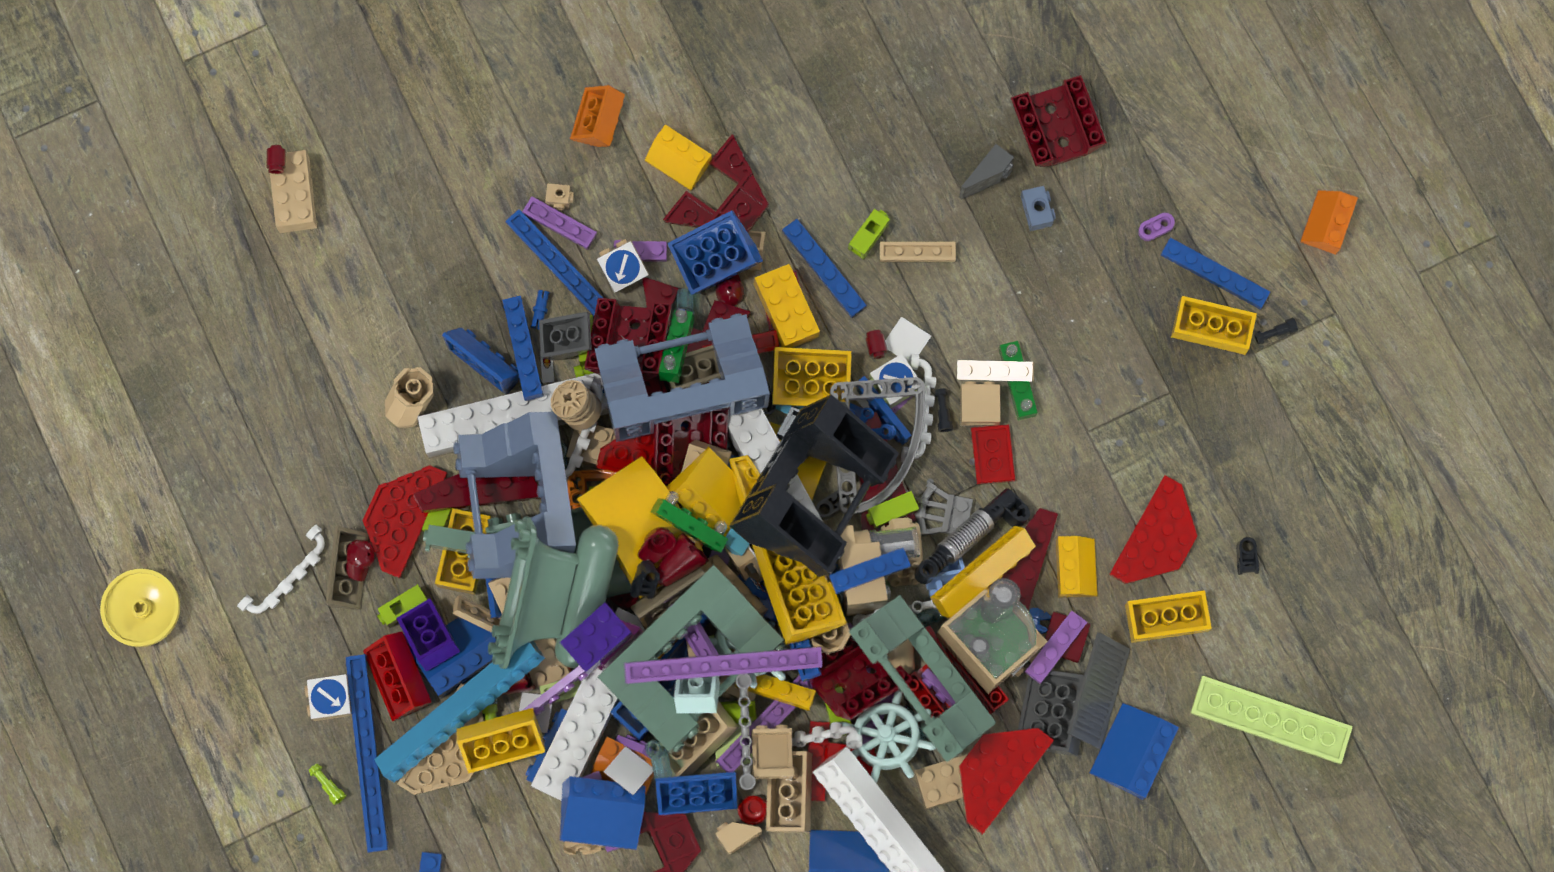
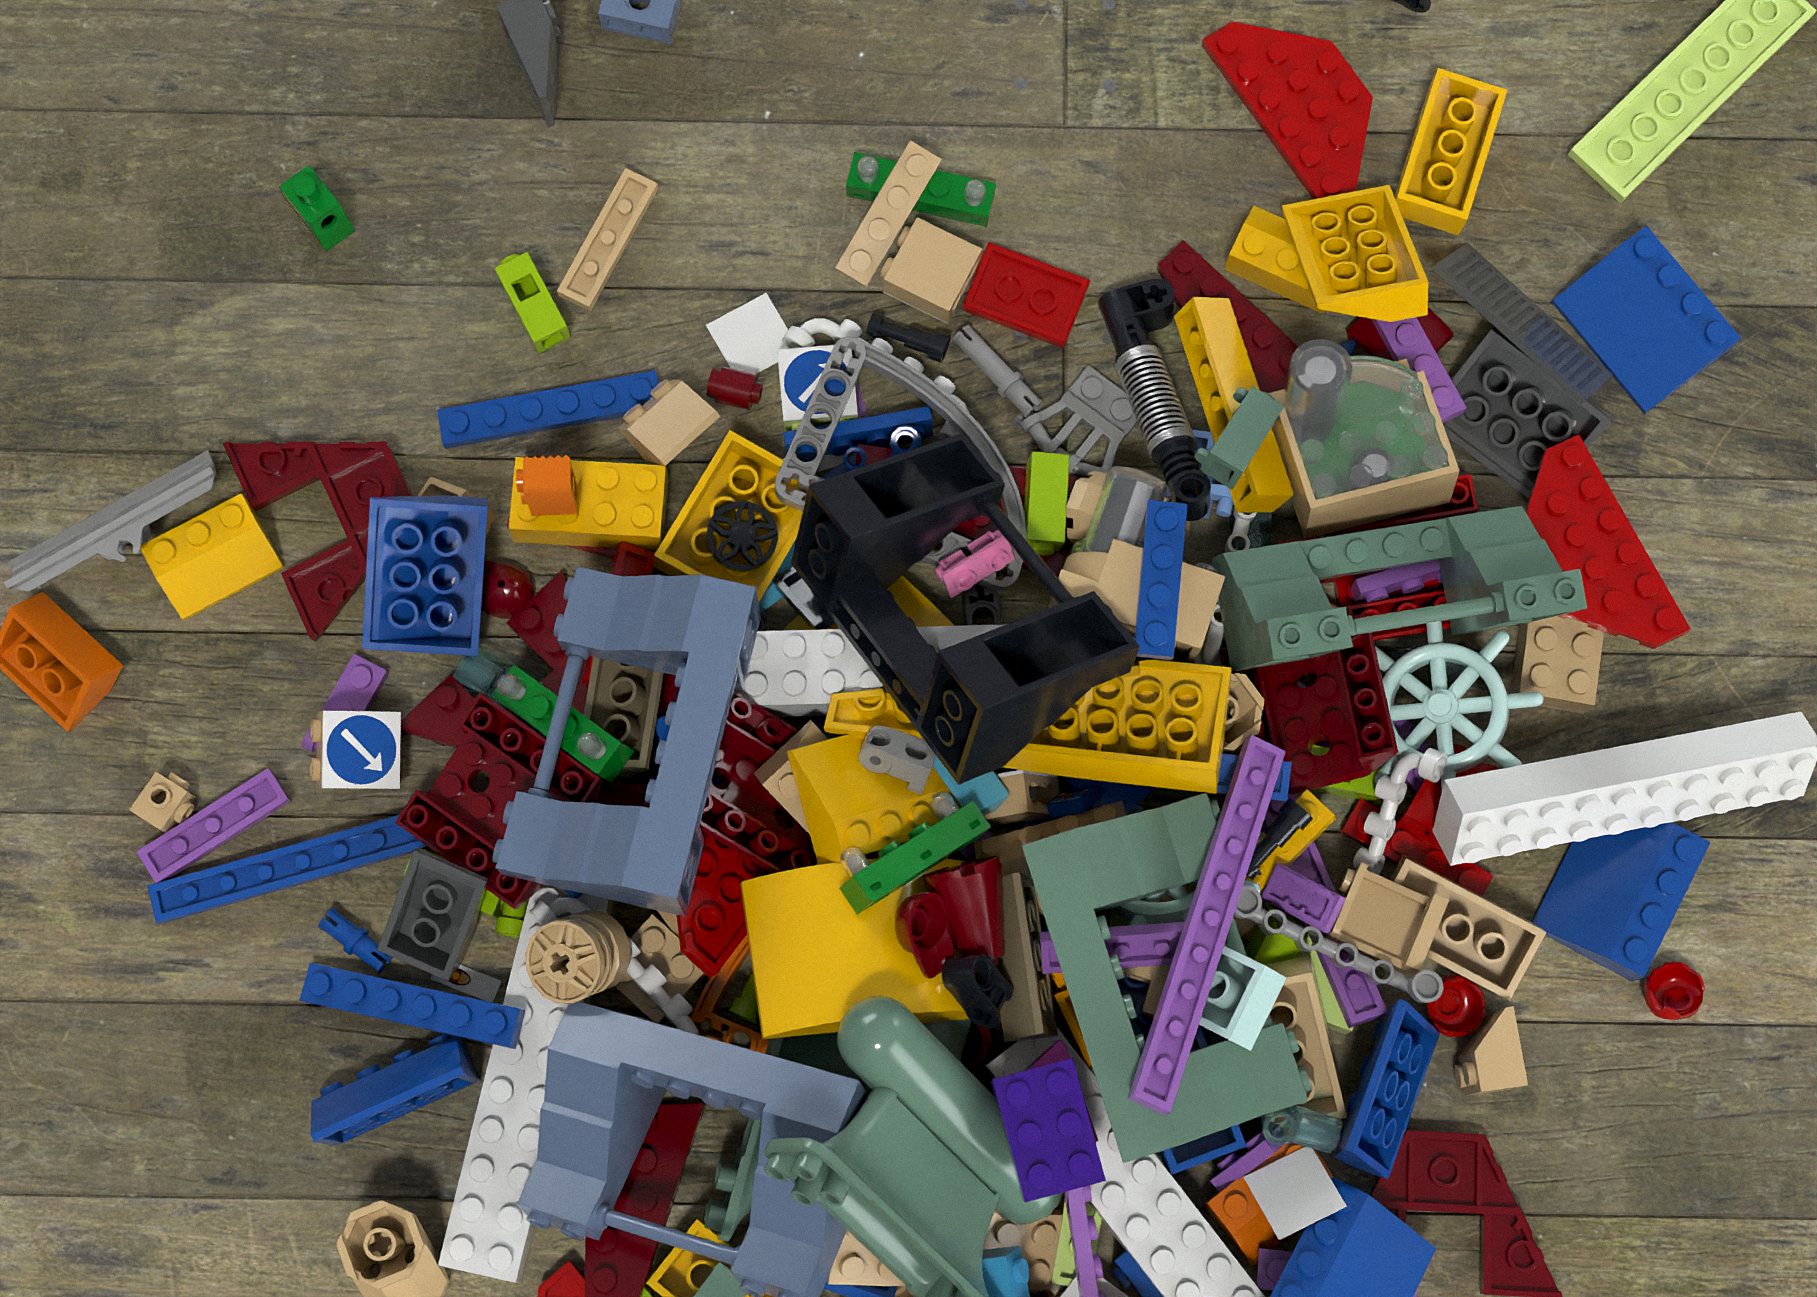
camera: 65 degrees left, 0 degrees up
(669, 108) = (114, 525): none -> light grey hinge
(732, 496) = (898, 756): none -> light grey leg
(762, 710) = (1303, 897): none -> medium lavender plate
(779, 284) = (548, 485): none -> orange brick
(796, 688) = (1278, 833): none -> black piece
(803, 381) = (742, 536): none -> black wheel
(836, 486) = (988, 555): none -> bright pink hinge
(842, 322) = (667, 421): none -> tan slope
(863, 114) = (314, 203): none -> green torso
(944, 466) = (1008, 382): none -> light grey pin
(962, 578) = (1240, 437): none -> sand green brick
(1086, 594) = (1359, 255): none -> yellow slope

